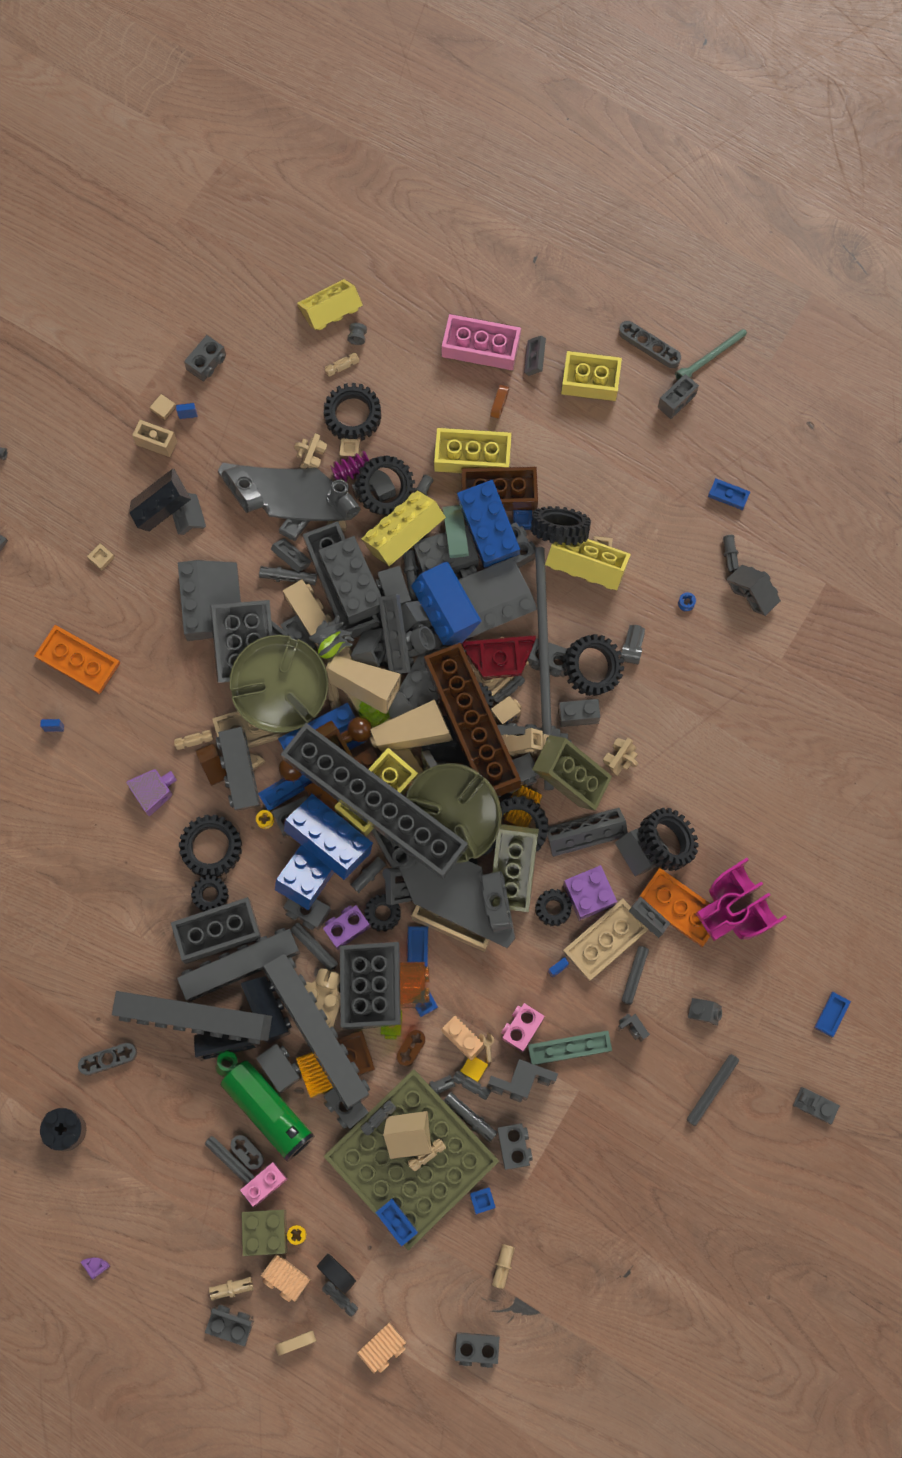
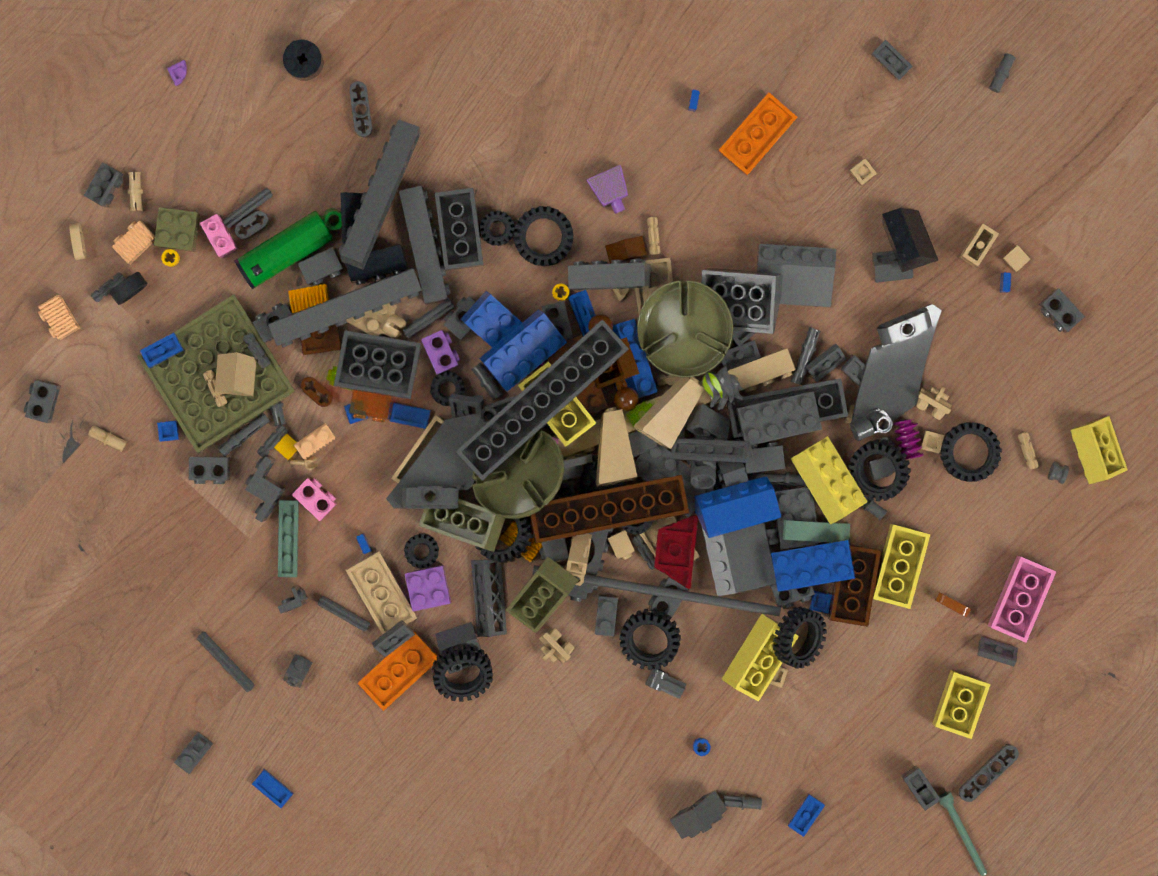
camera: 100 degrees right, 15 degrees up
(725, 891) = (367, 729): dark pink piece -> none

